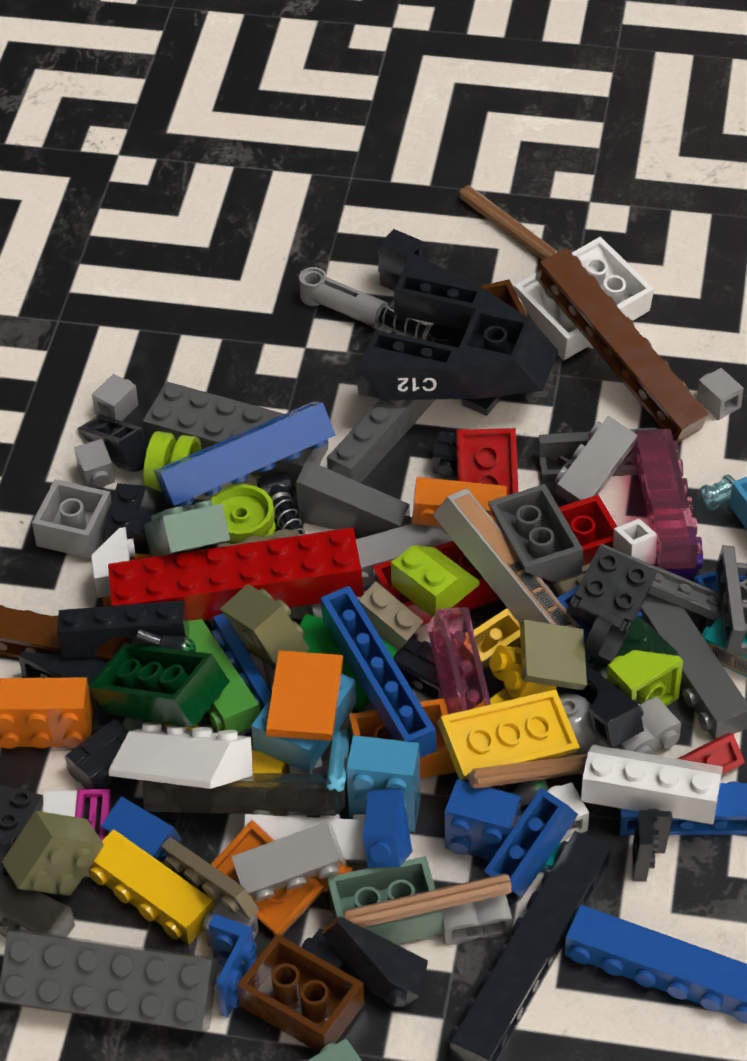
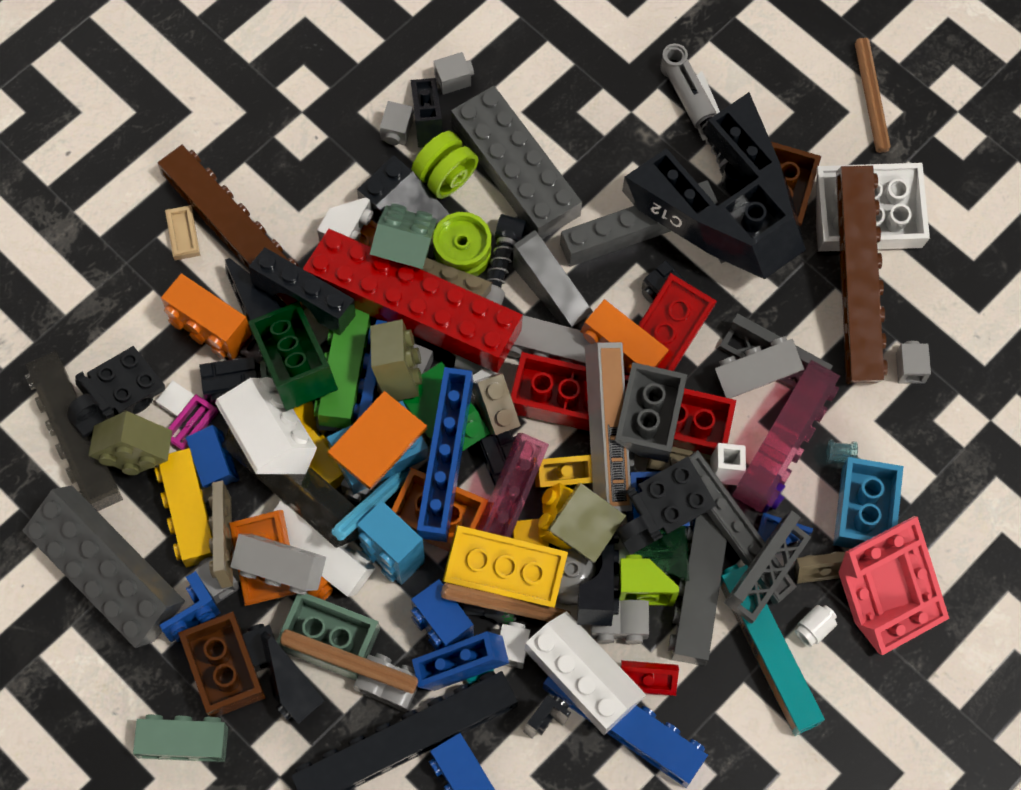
camera: 30 degrees right, 20 degrees up
(72, 518) = (344, 162): light grey brick -> none
(165, 641) = (326, 332): black piece -> none
(245, 453) = (493, 195): blue brick -> none
(386, 829) = (360, 585): blue slope -> none
(393, 255) = (754, 77): black brick -> none
(430, 578) = (553, 395): lime slope -> none

